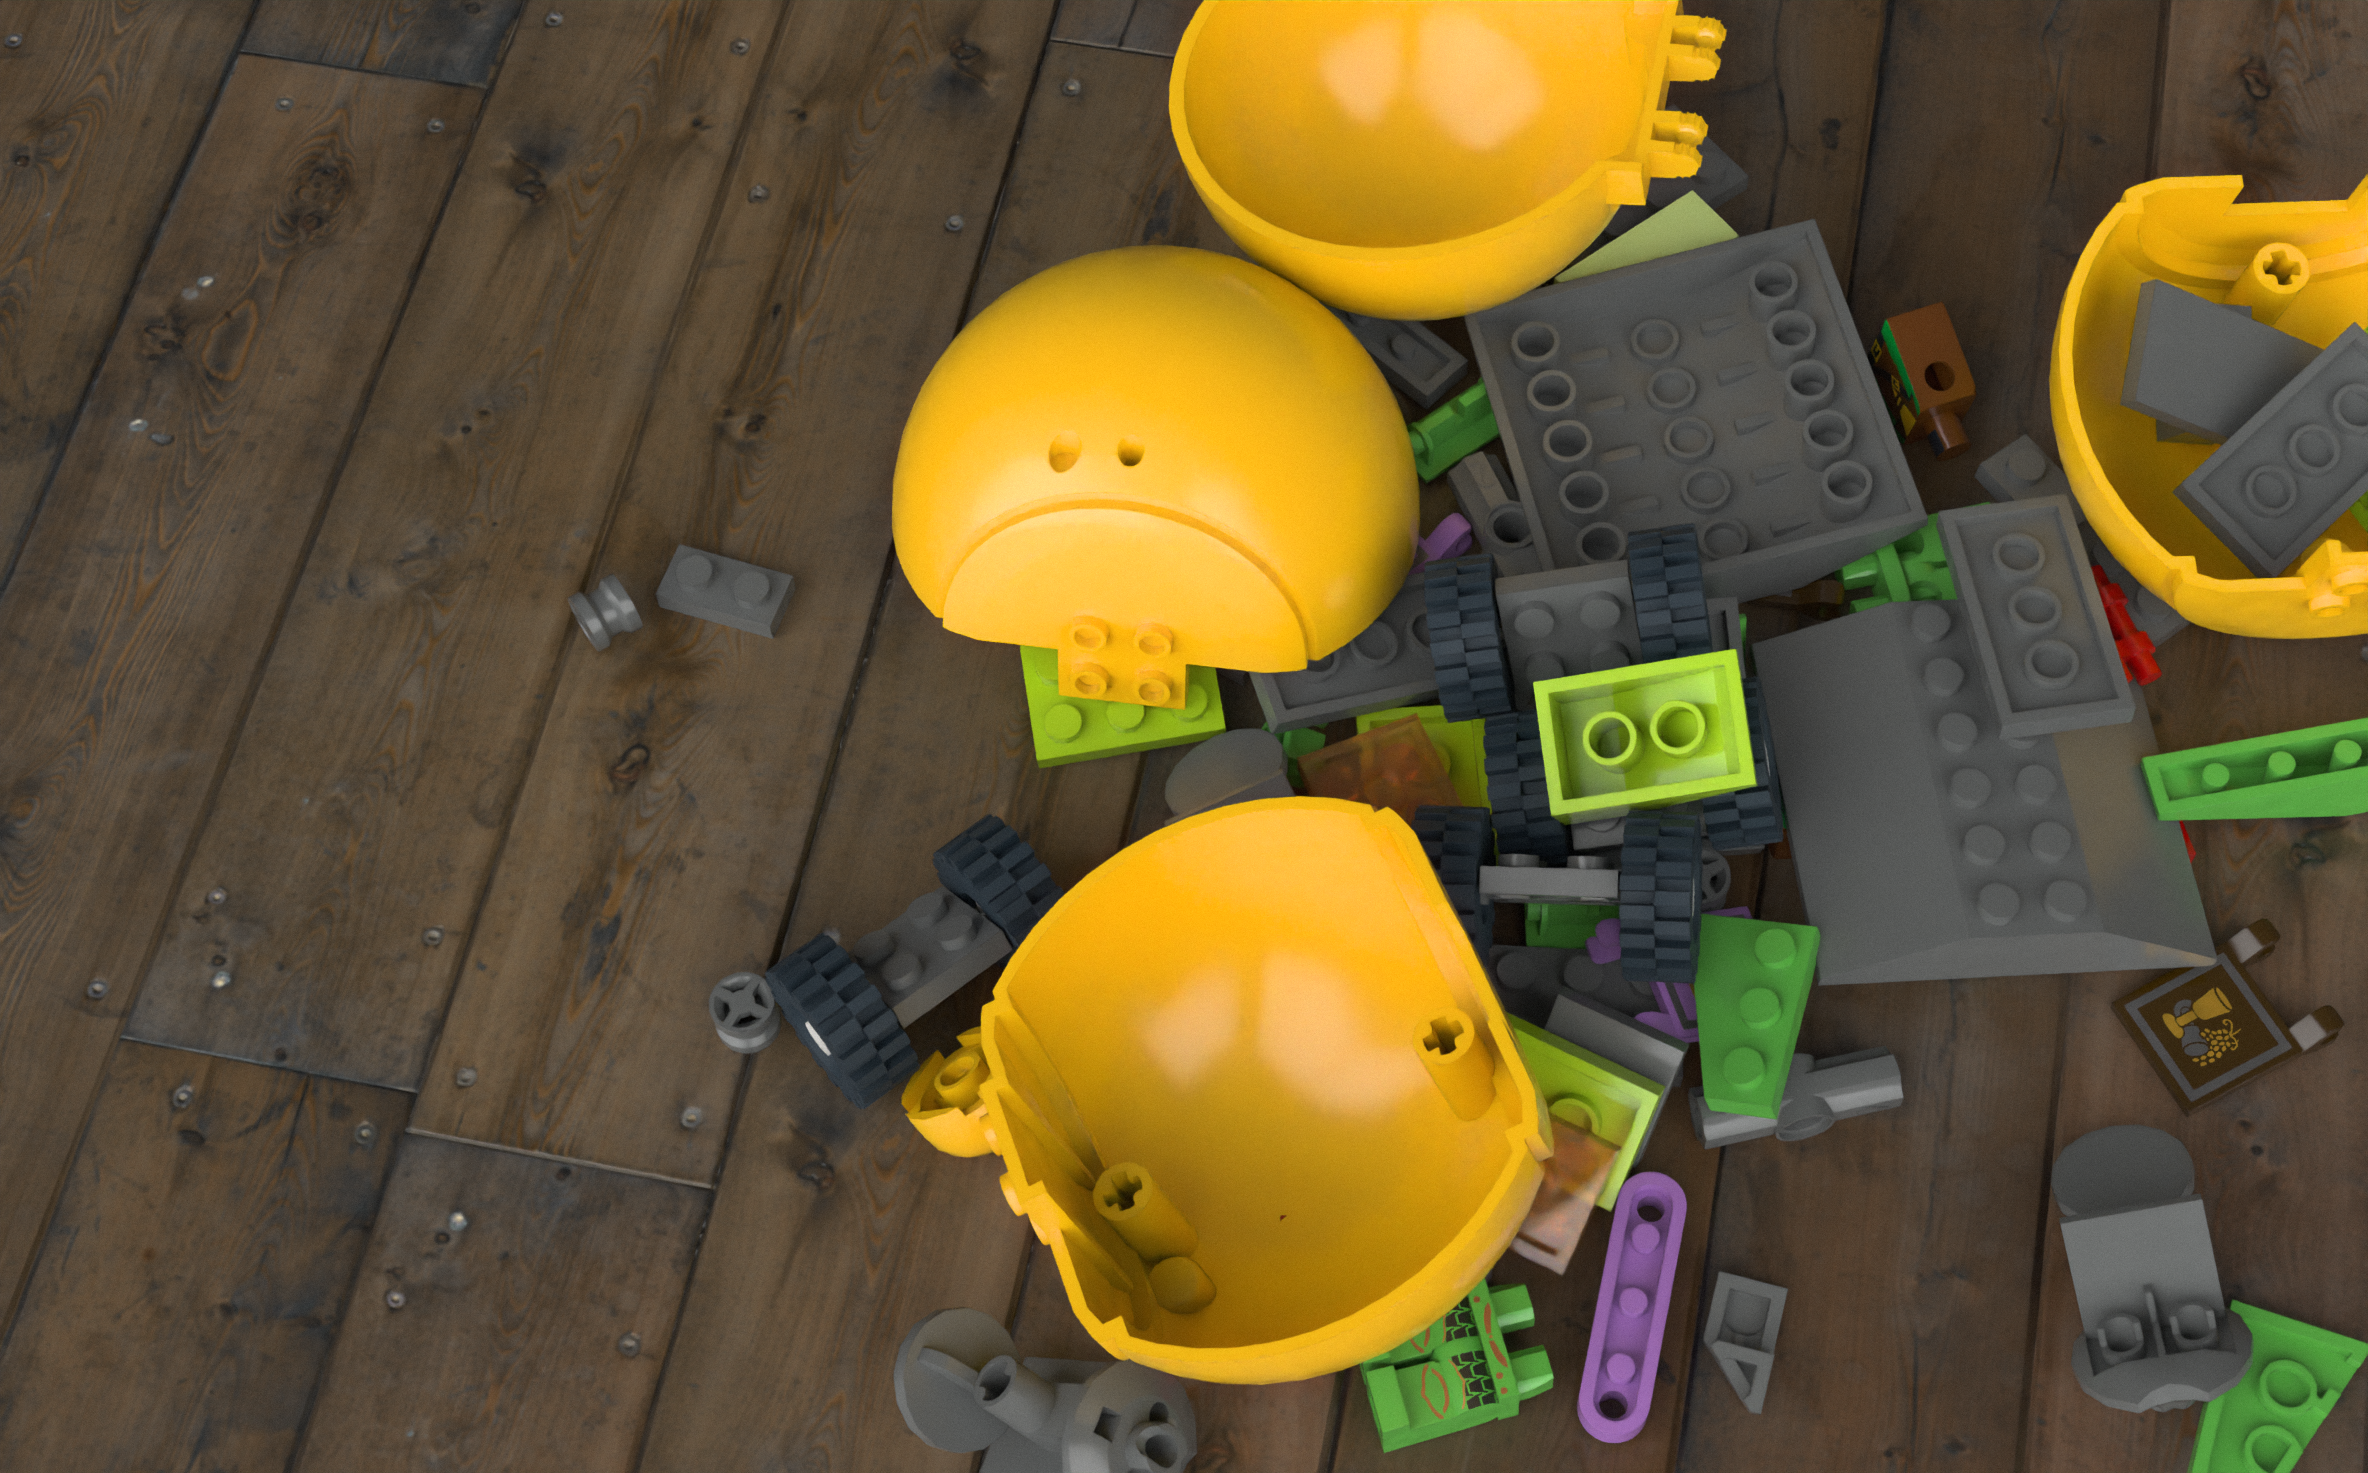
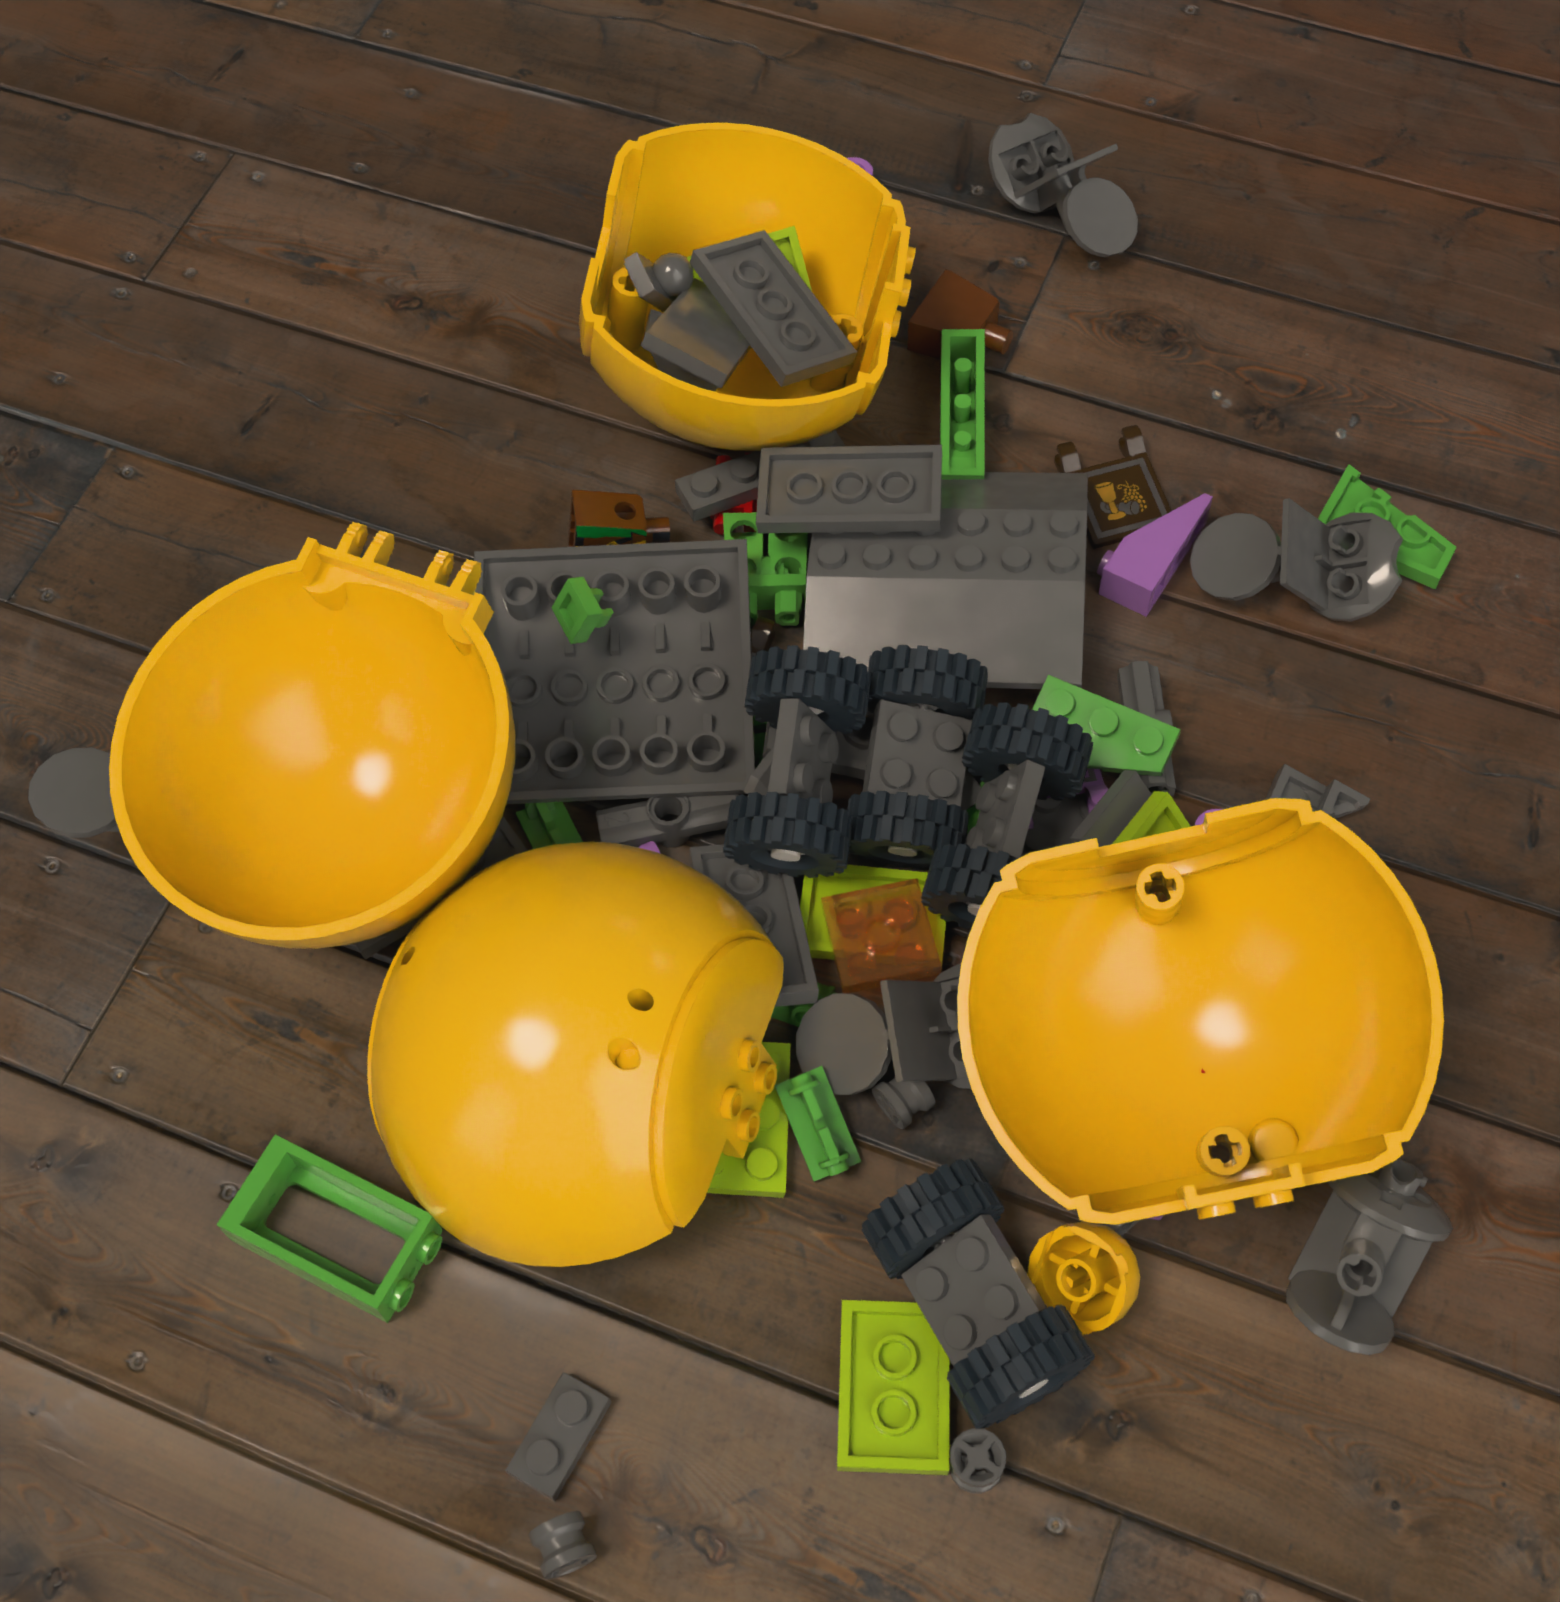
camera: 80 degrees left, 0 degrees up
(791, 897) = (892, 1391): none -> lime plate
(908, 244) = (289, 1165): none -> bright green piece
(1127, 777) = (818, 1124): none -> bright green hinge
(1644, 736) = (925, 720): lime slope -> none
(1746, 345) = (579, 610): none -> bright green tile
(2104, 1075) = (1151, 555): none -> medium lavender slope
(2305, 299) = (662, 280): none -> dark grey tile

